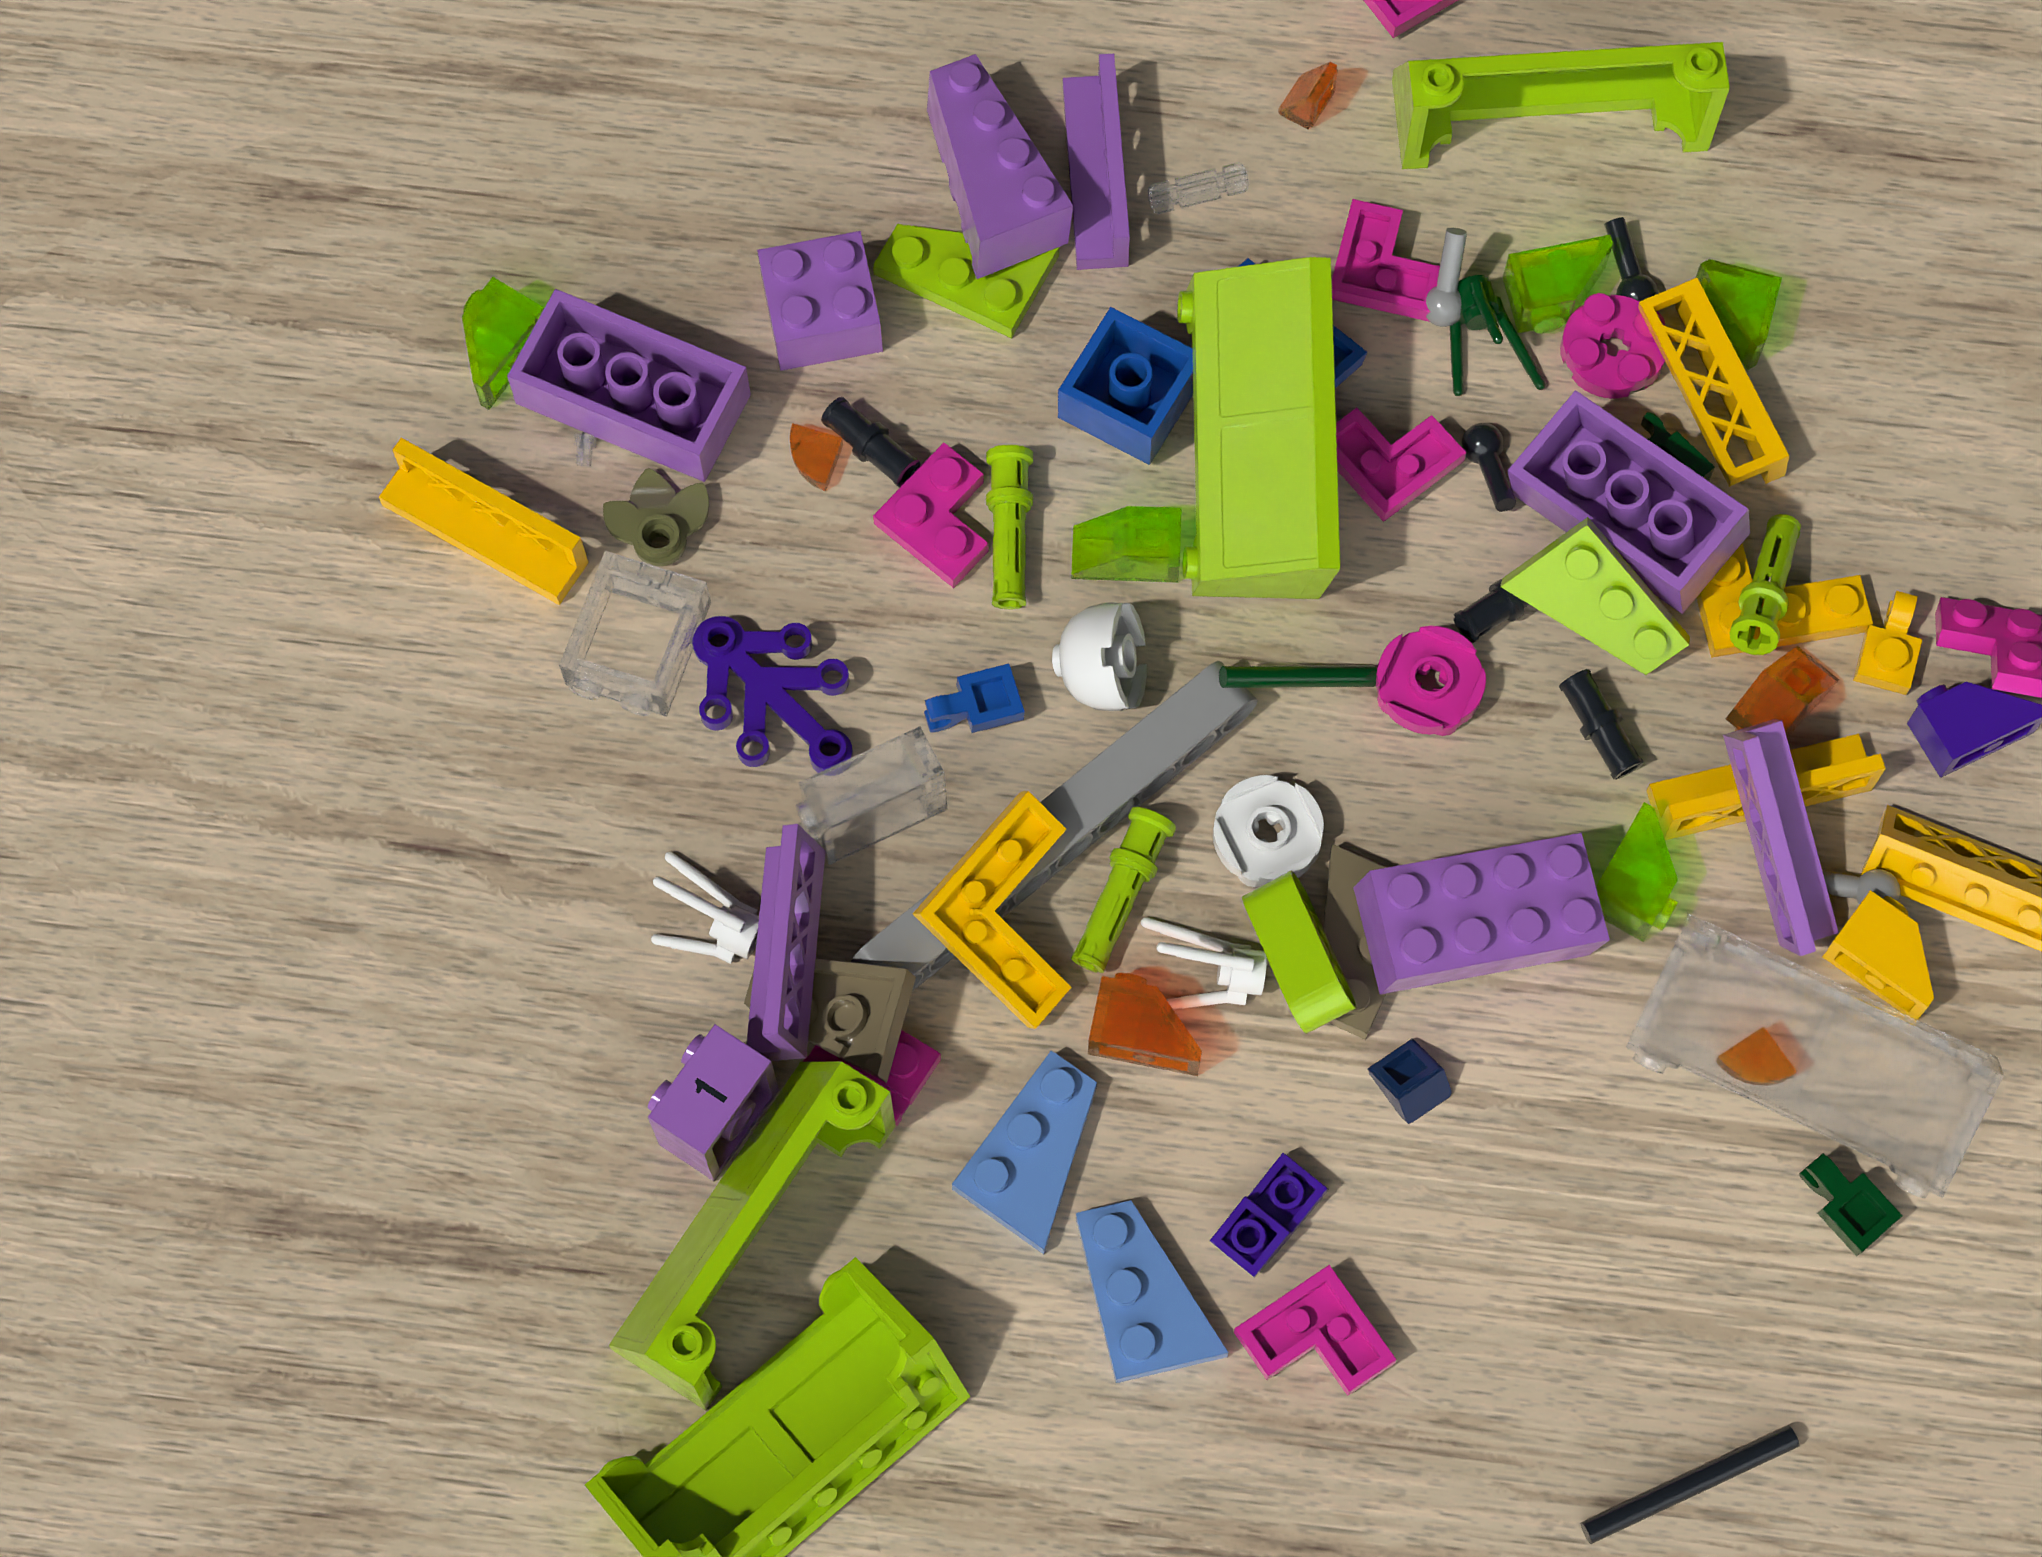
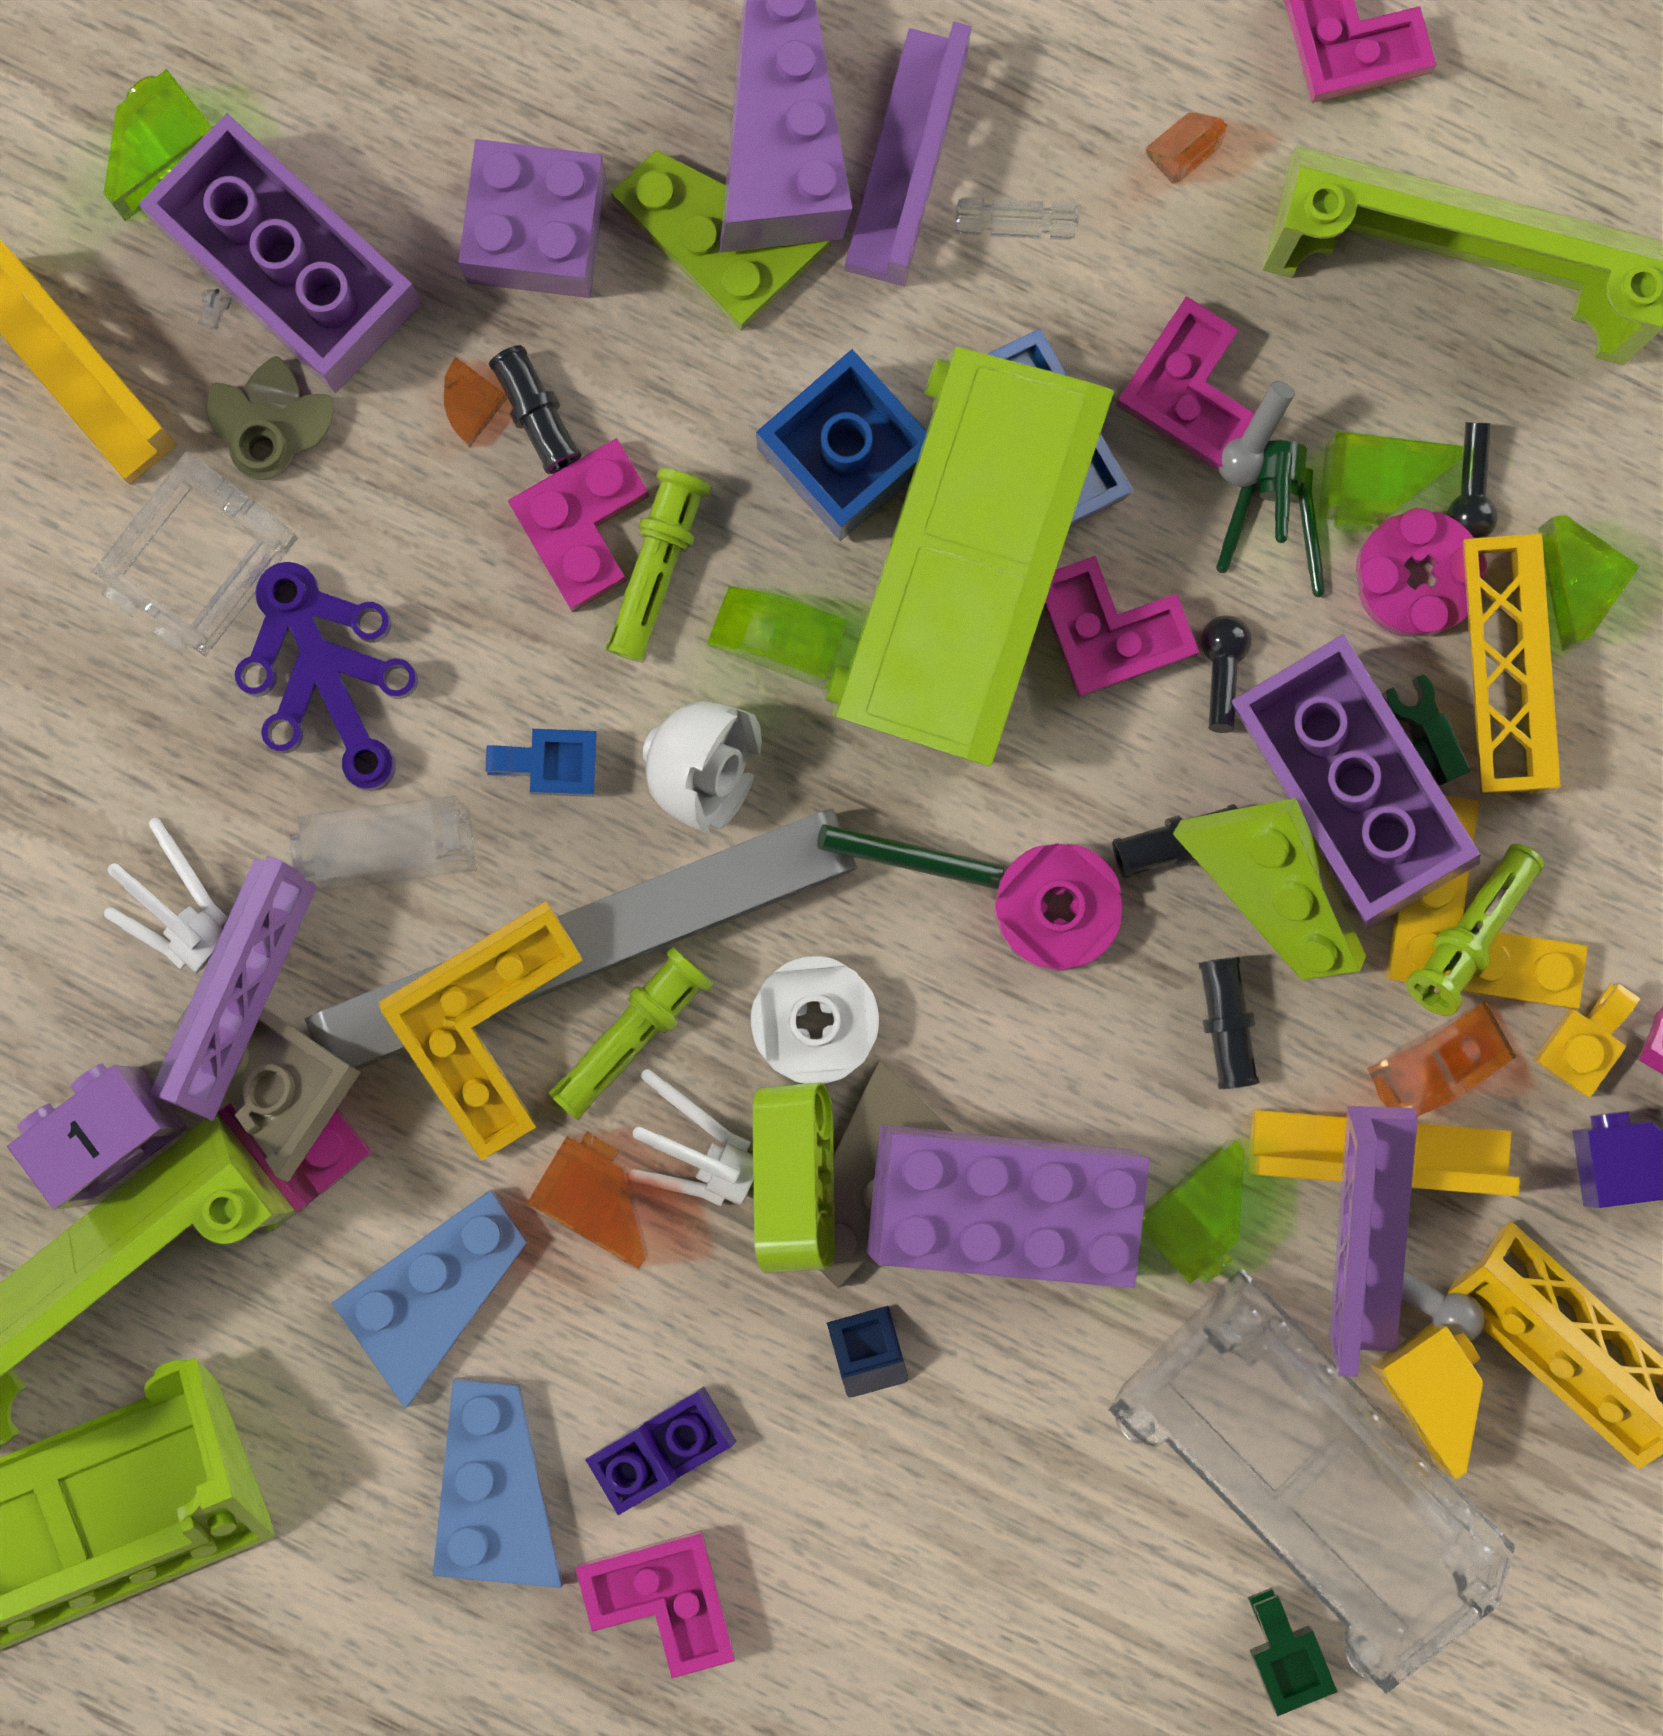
camera: 15 degrees right, 15 degrees up
(1757, 1060) = (1250, 1463): clear orange tile -> none

